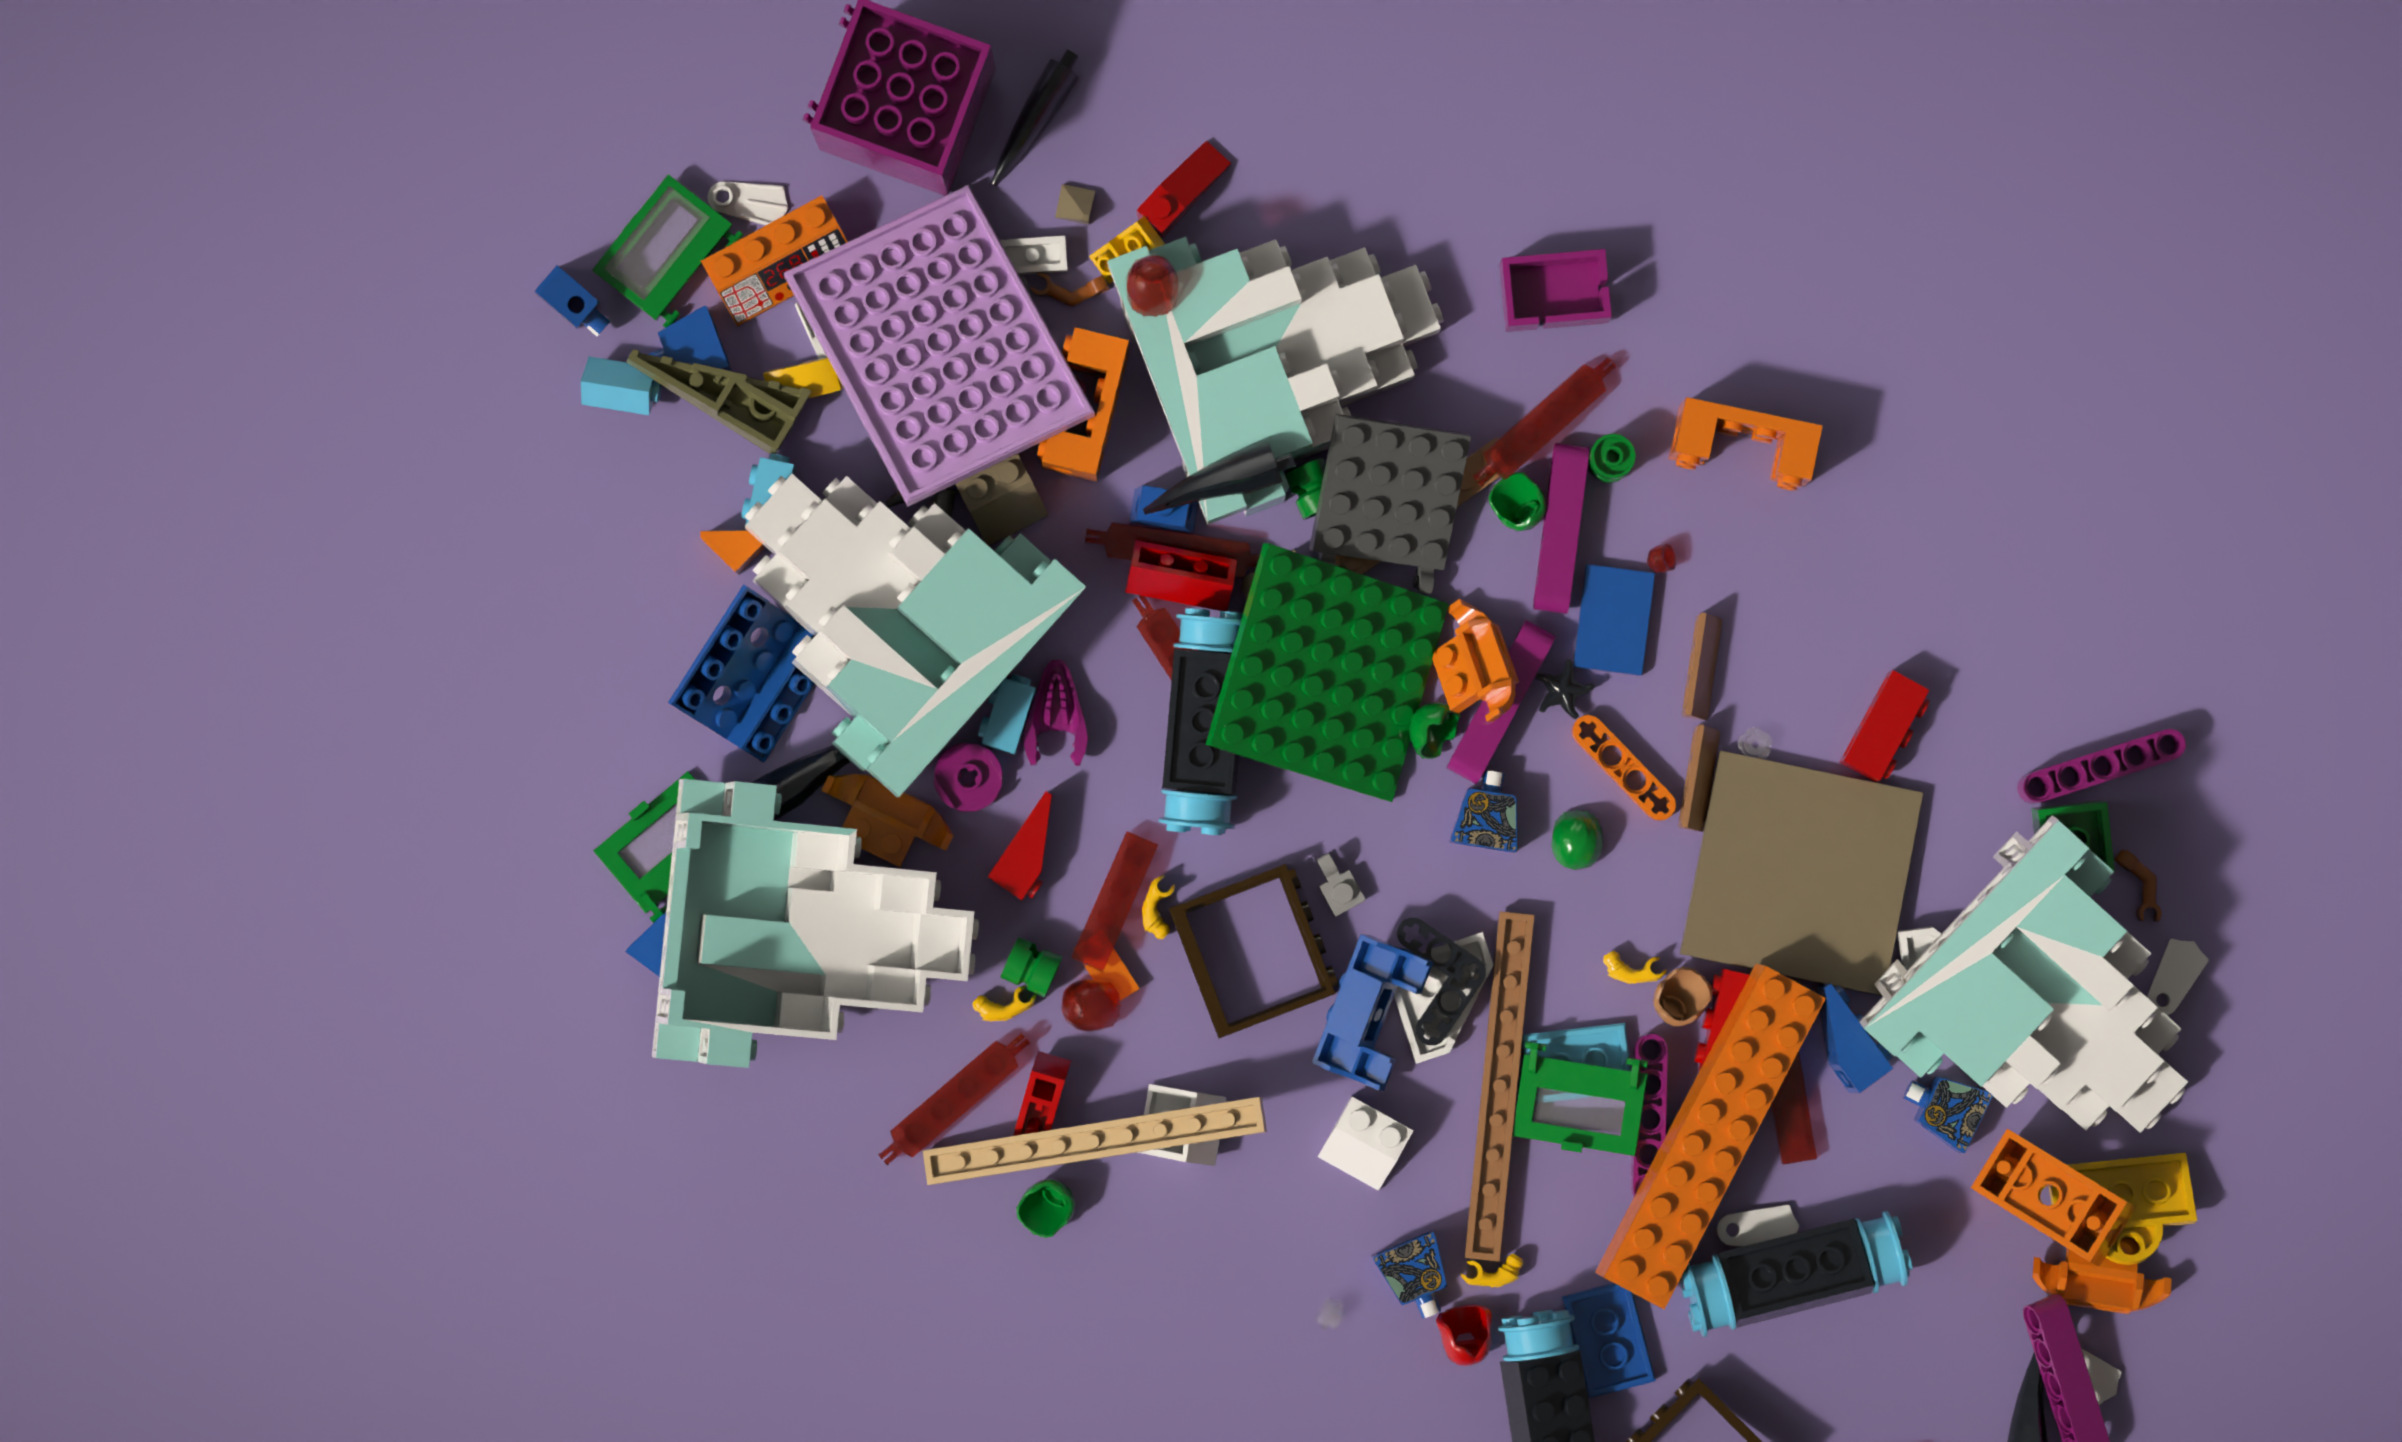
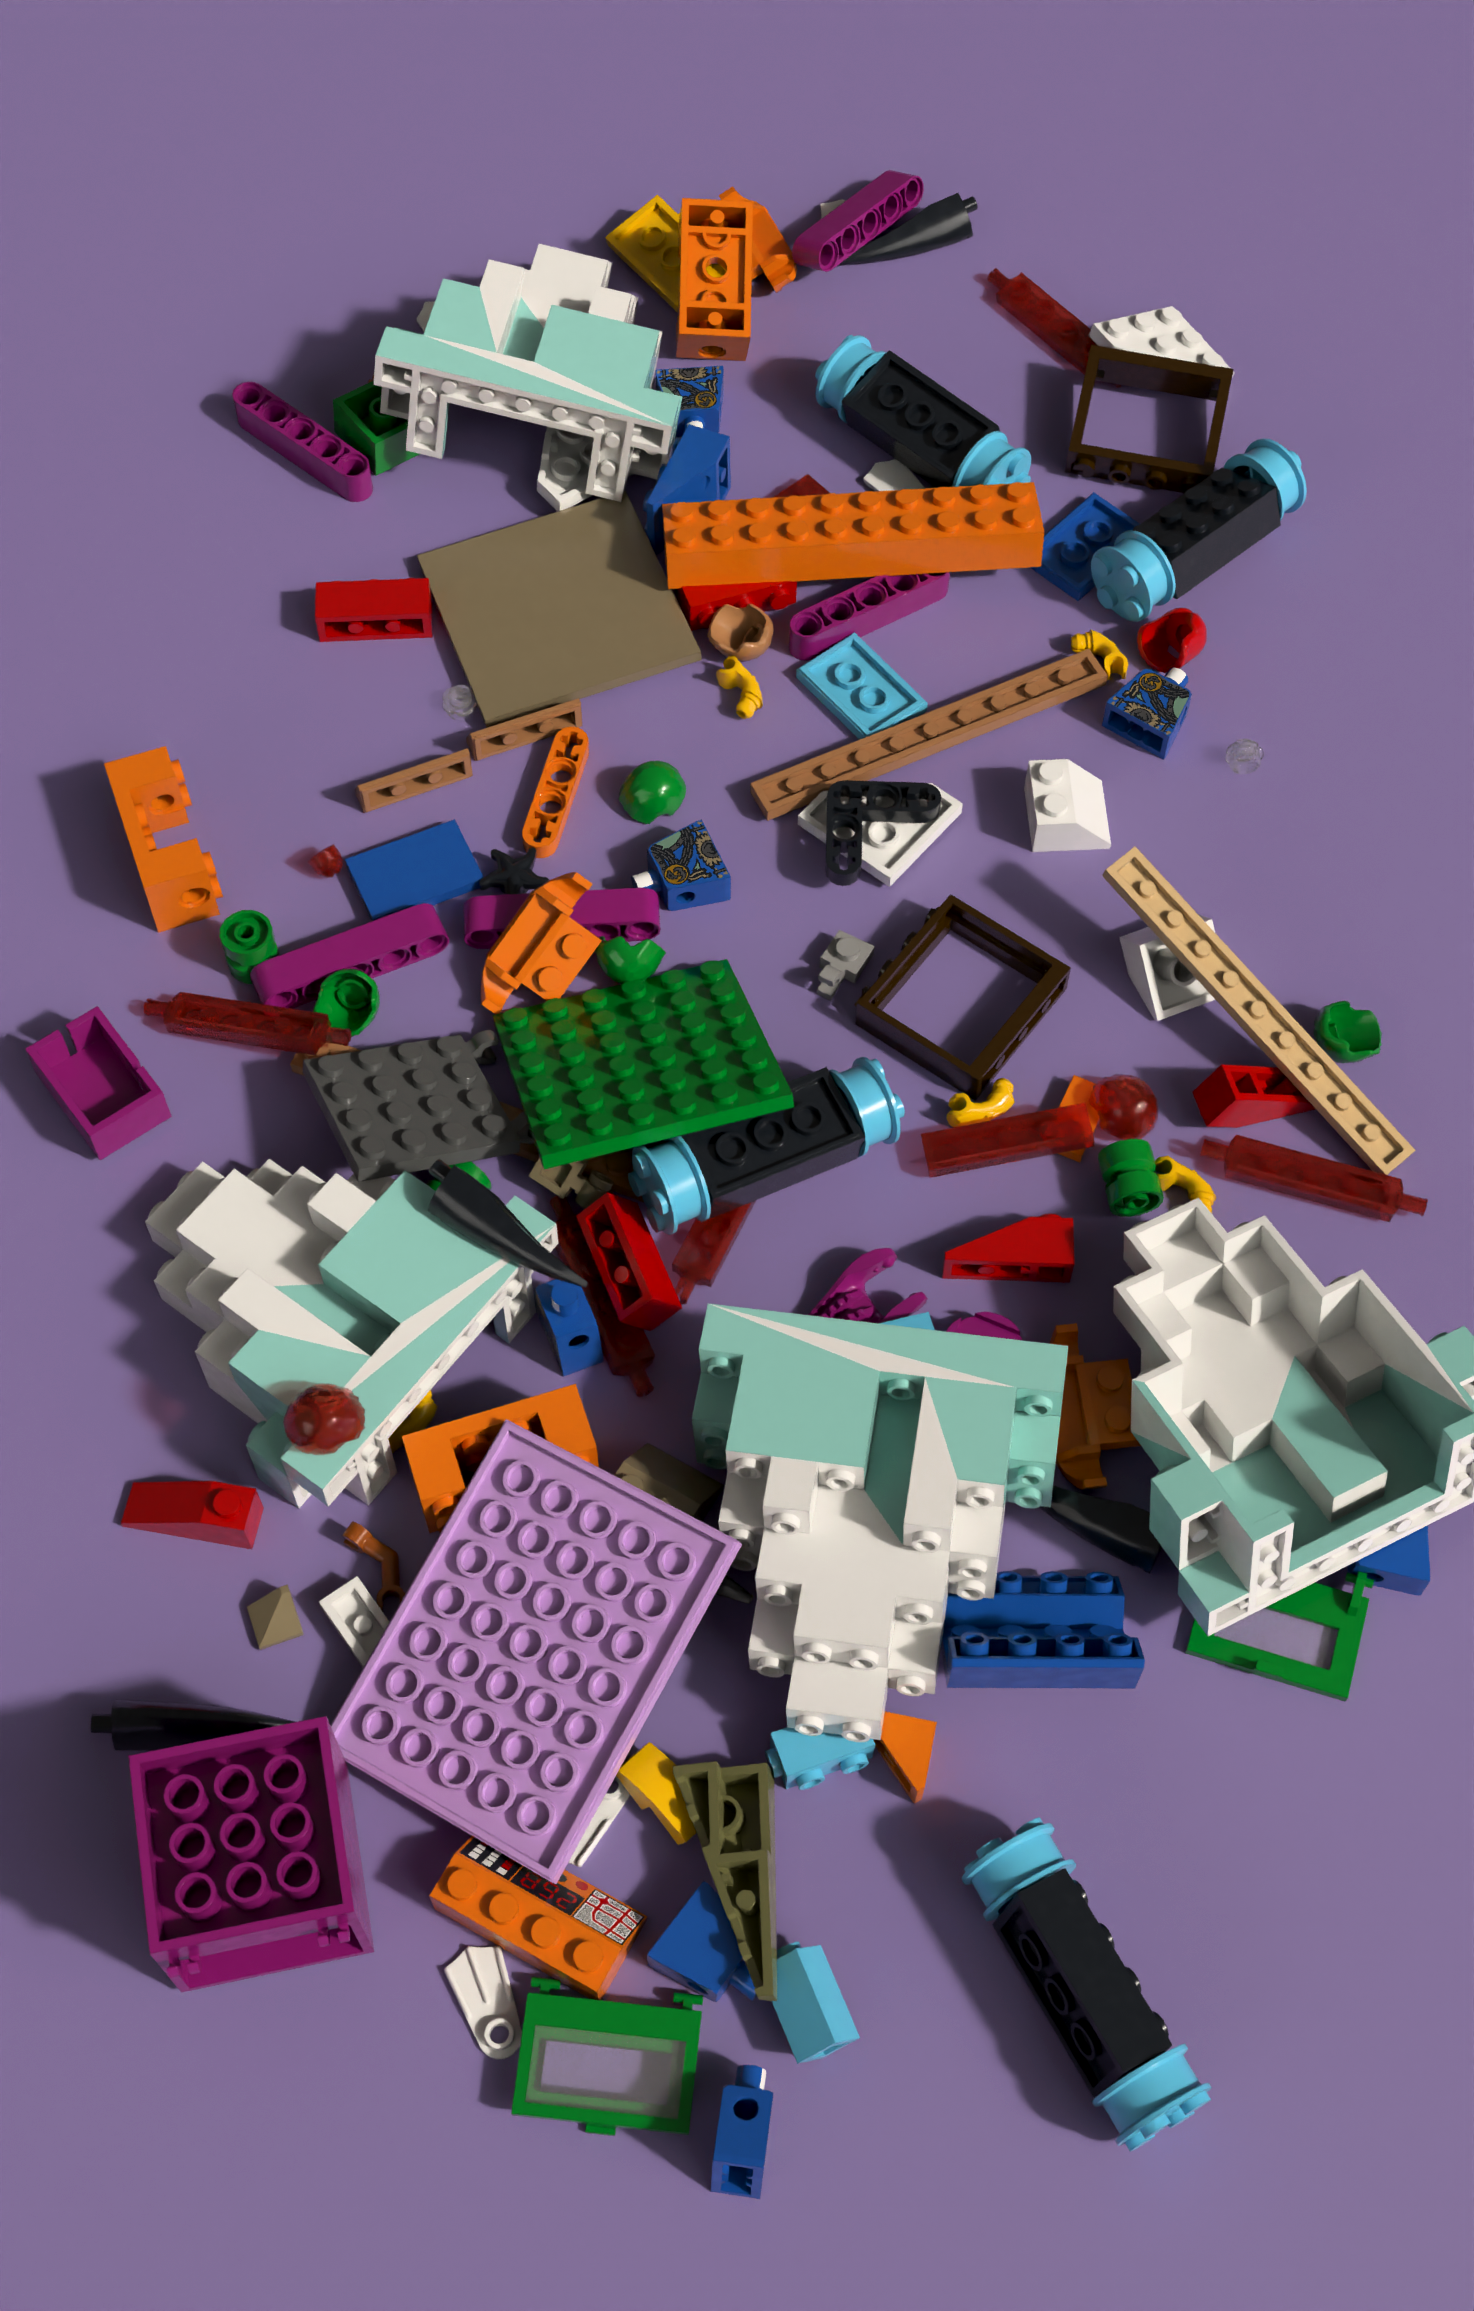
camera: 120 degrees left, 25 degrees down
(508, 551) = (1084, 1985): none -> black brick
(1134, 237) = (298, 1527): yellow slope -> none
(1362, 1008) = (945, 868): blue bracket -> none
(1580, 1103) = (898, 654): green piece -> none

